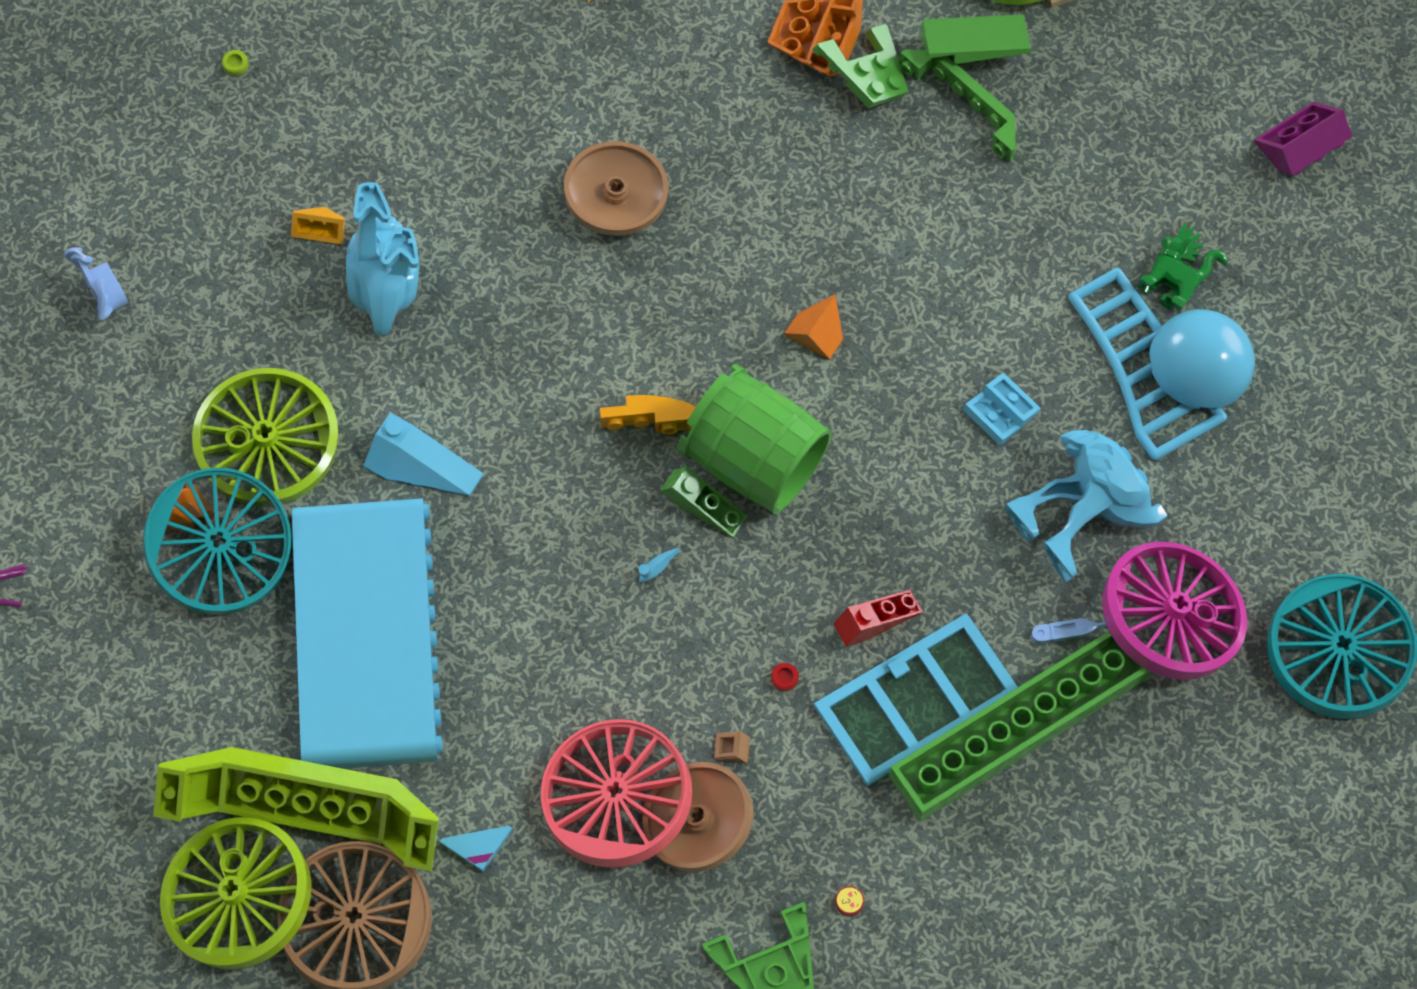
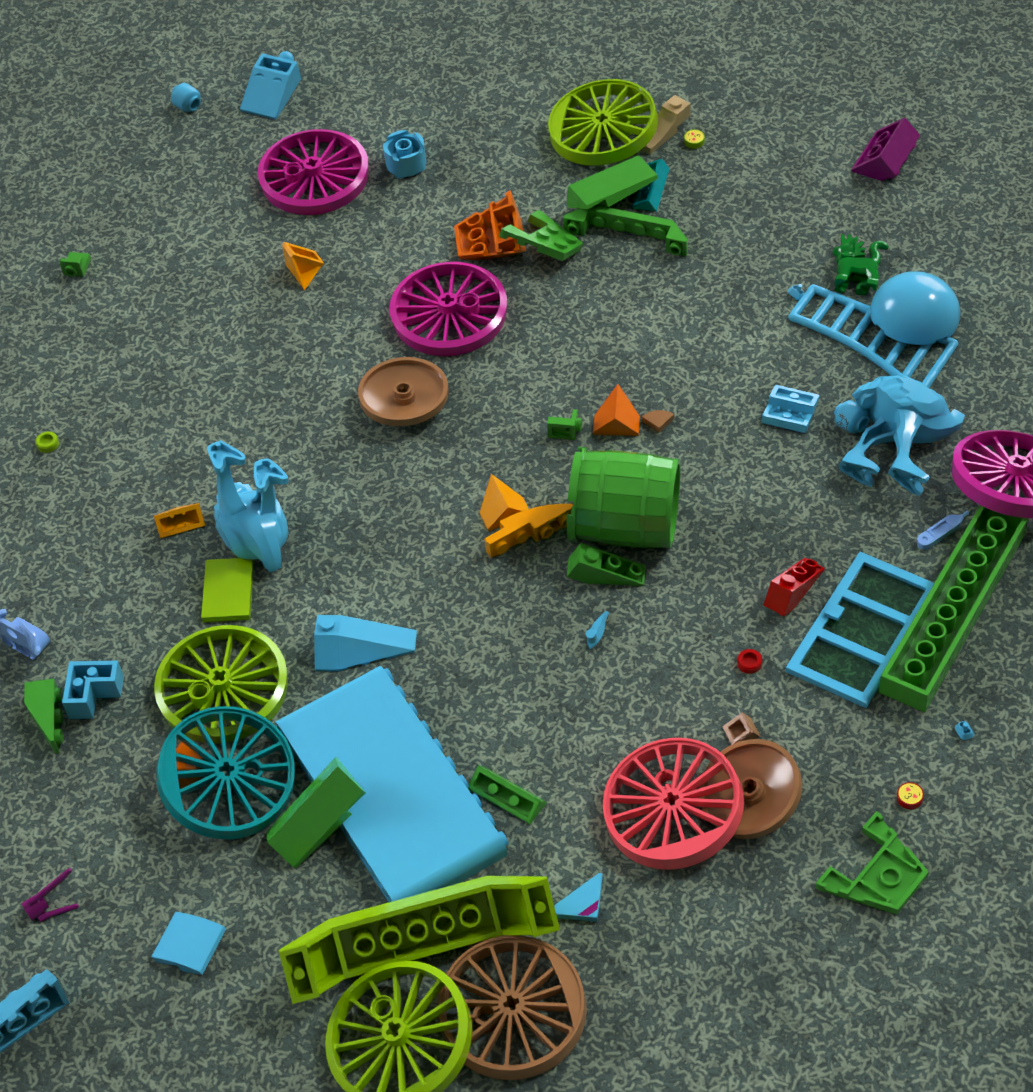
camera: 20 degrees left, 15 degrees down
(86, 375) = (42, 703): none -> bright green slope
(100, 697) = (188, 943): none -> medium azure slope
(138, 372) = (88, 682): none -> medium azure brick
(275, 629) = (315, 814): none -> bright green slope
(325, 332) = (227, 590): none -> lime tile
(471, 697) = (506, 794): none -> bright green slope
(643, 373) = (500, 503): none -> light orange slope
(719, 103) = (448, 307): none -> dark pink piece
(755, 315) = (564, 427): none -> bright green bracket
(859, 352) = (658, 419): none -> medium nougat tile
(946, 861) = (964, 730): none -> medium azure rock
(1013, 68) = (650, 195): none -> teal slope
(1052, 455) = (851, 417): none -> medium azure head
(1095, 268) = (796, 292): none -> medium azure rock
(1108, 12) = (693, 141): none -> tile

